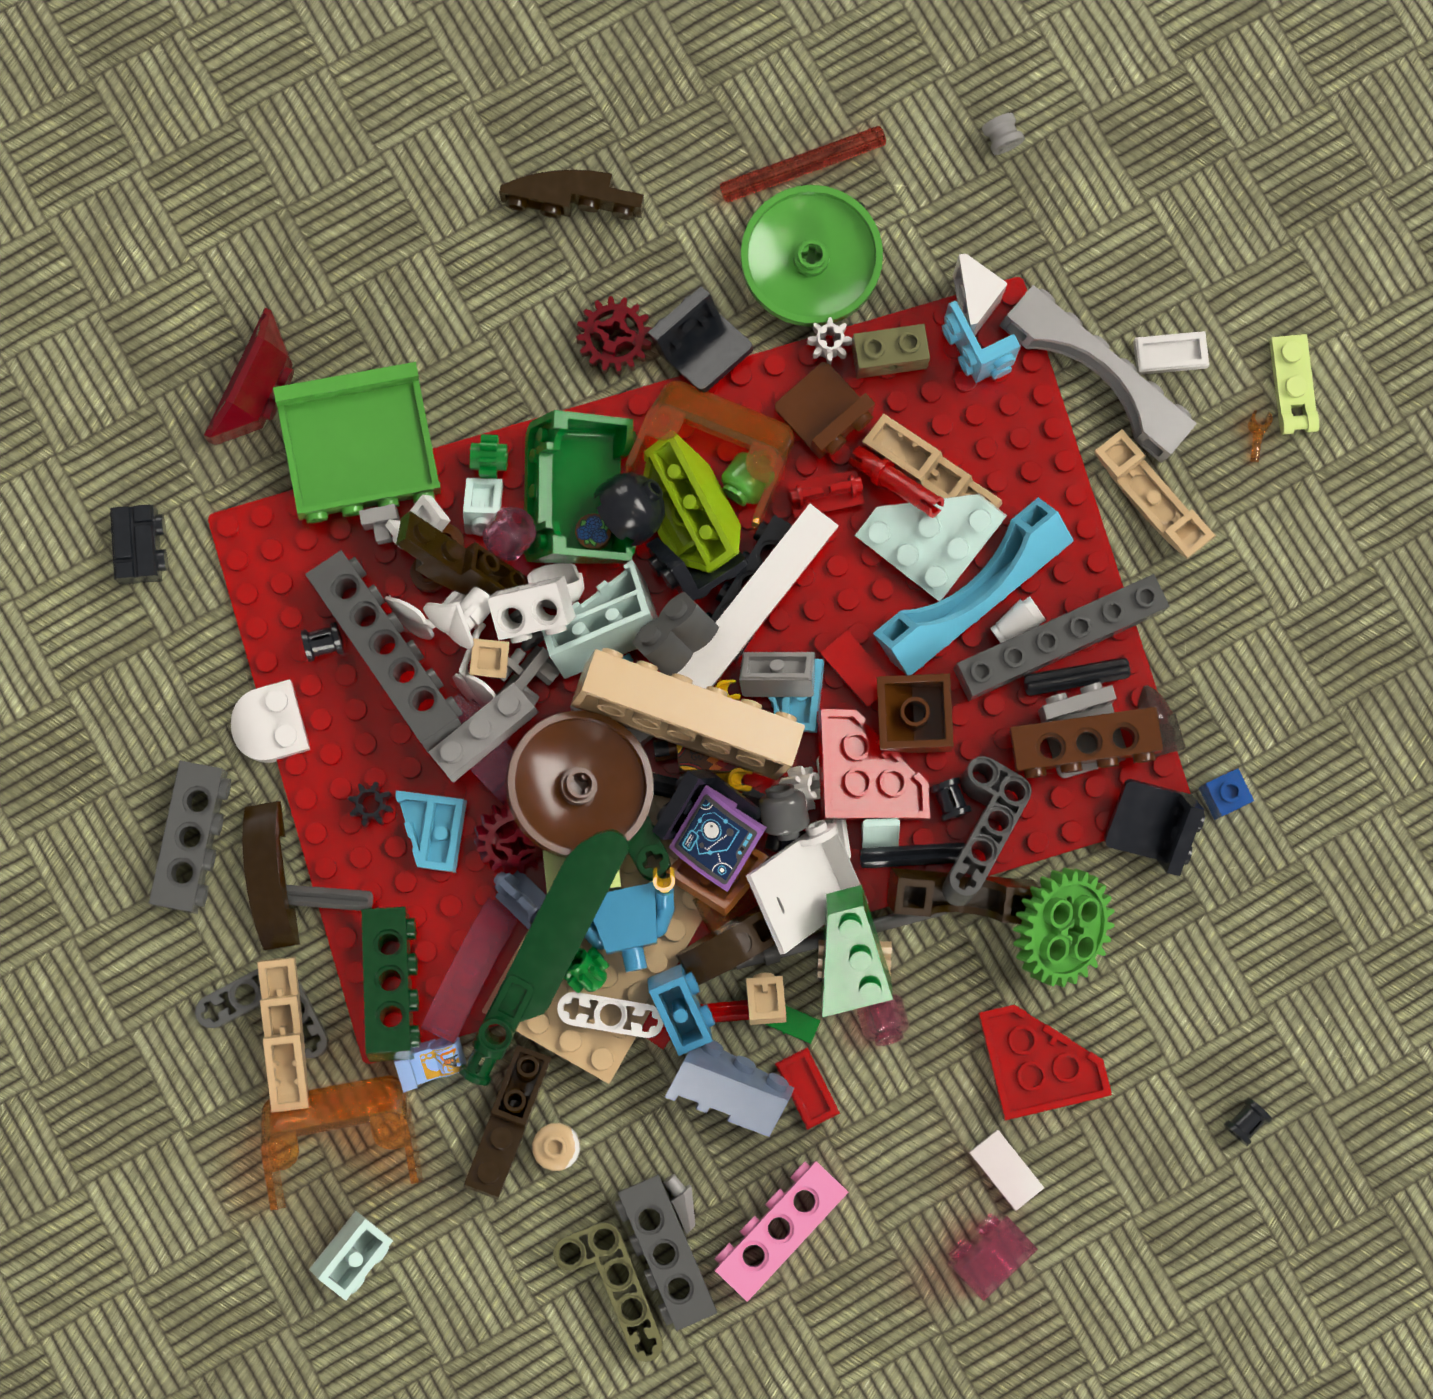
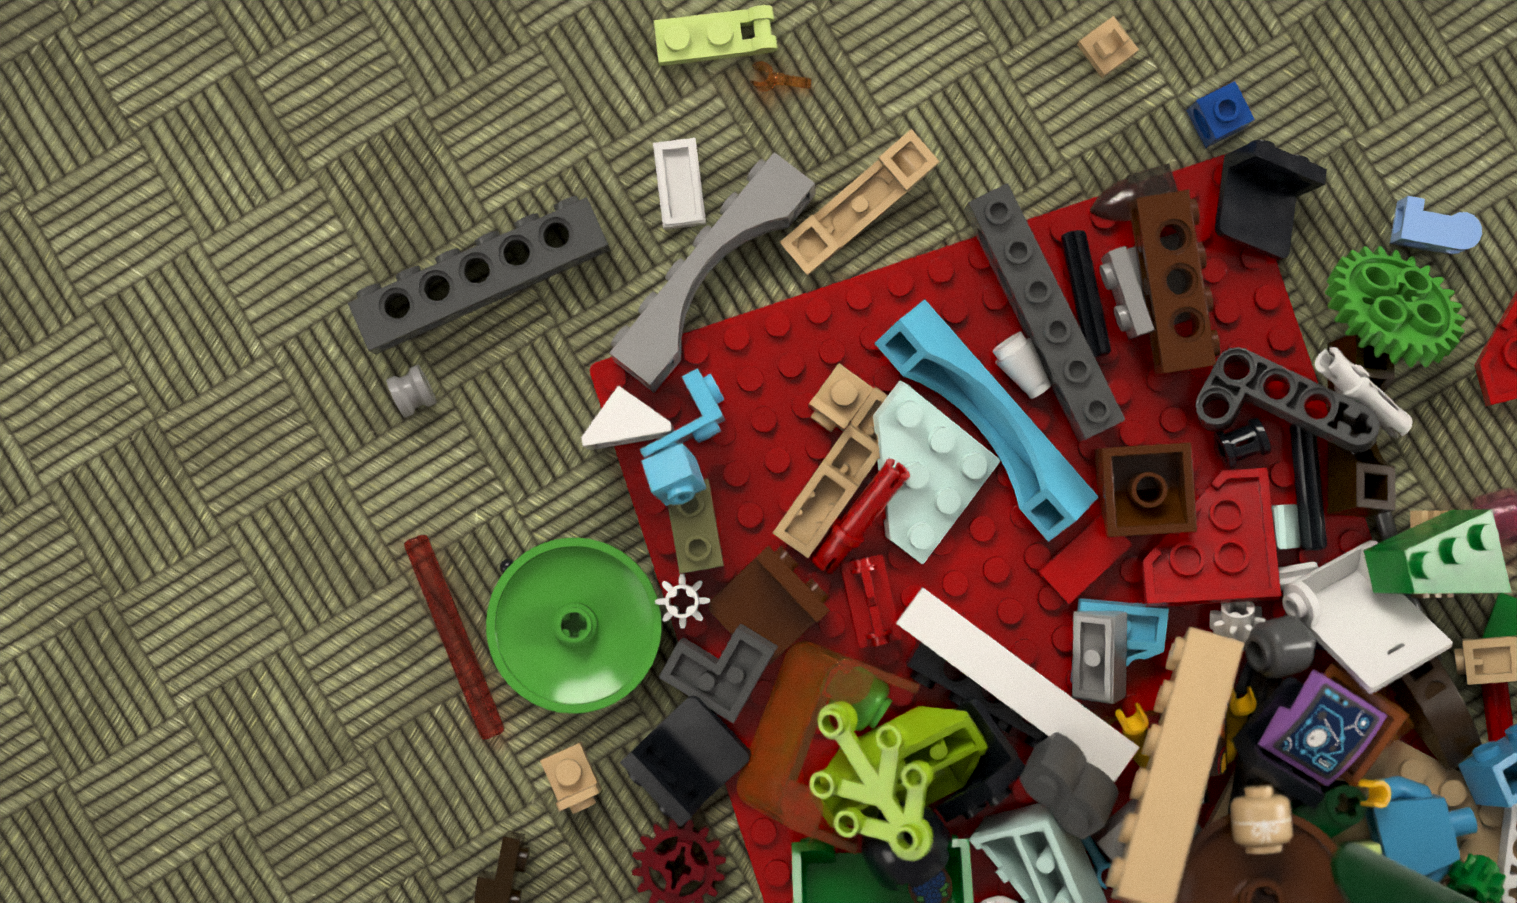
camera: 85 degrees left, 5 degrees up
(646, 781) = (1261, 820): none -> tan head
(686, 254) = (572, 778): none -> tan bracket
(732, 452) = (877, 785): none -> lime plant
(764, 371) = (721, 682): none -> dark grey plate
(934, 327) = (674, 475): none -> medium azure plate
(992, 471) = (839, 399): none -> tan bracket
(1000, 881) = (1355, 384): none -> white pin
(1123, 273) = (373, 302): none -> dark grey brick
(1124, 981) = (1433, 230): none -> light blue leg
(1284, 707) = (1107, 47): none -> tan tile

